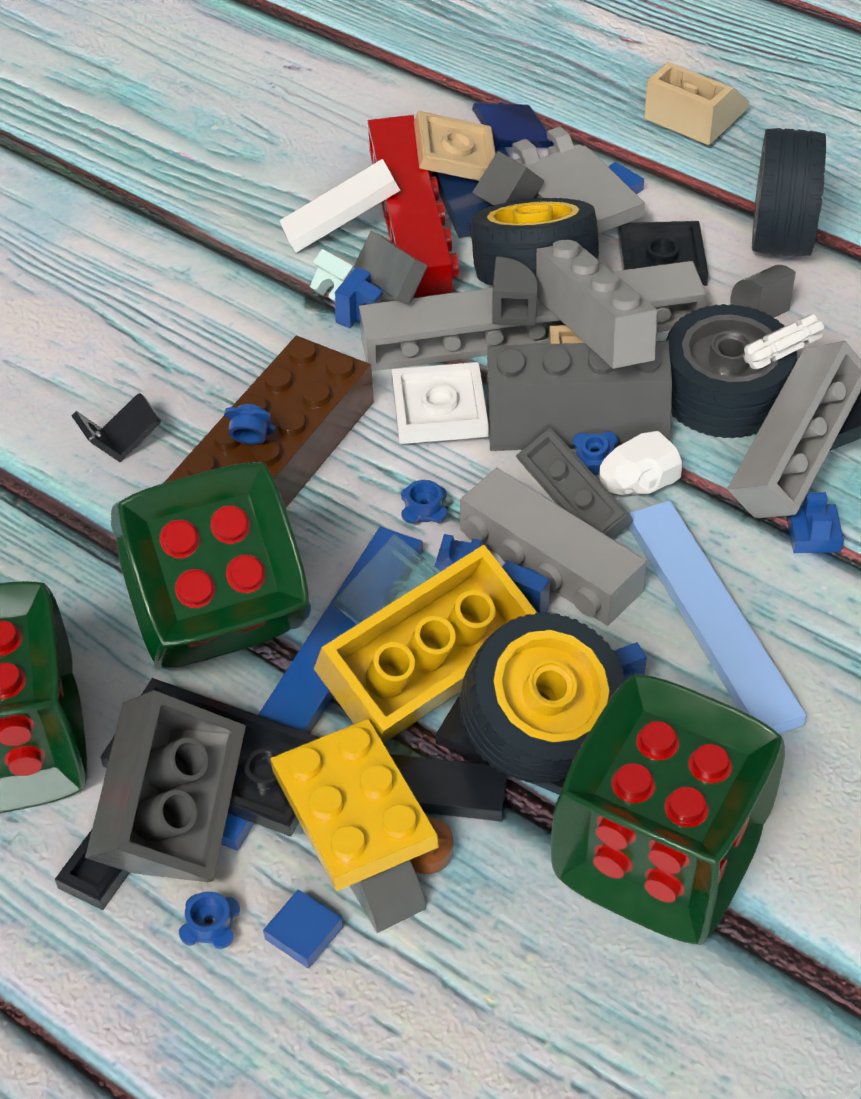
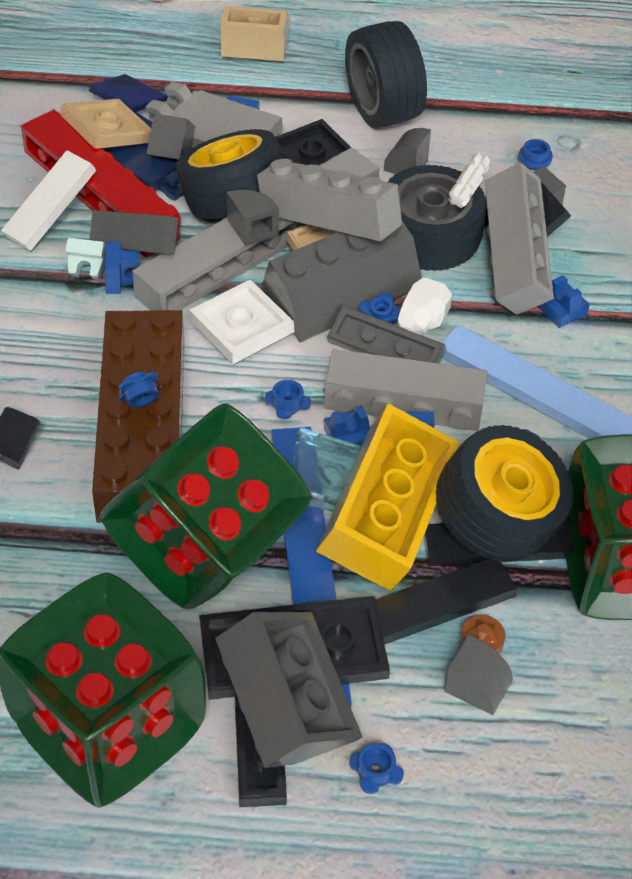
camera: 35 degrees left, 0 degrees up
(303, 928) = (445, 738): blue tile -> none
(353, 804) = (429, 629): yellow plate -> none

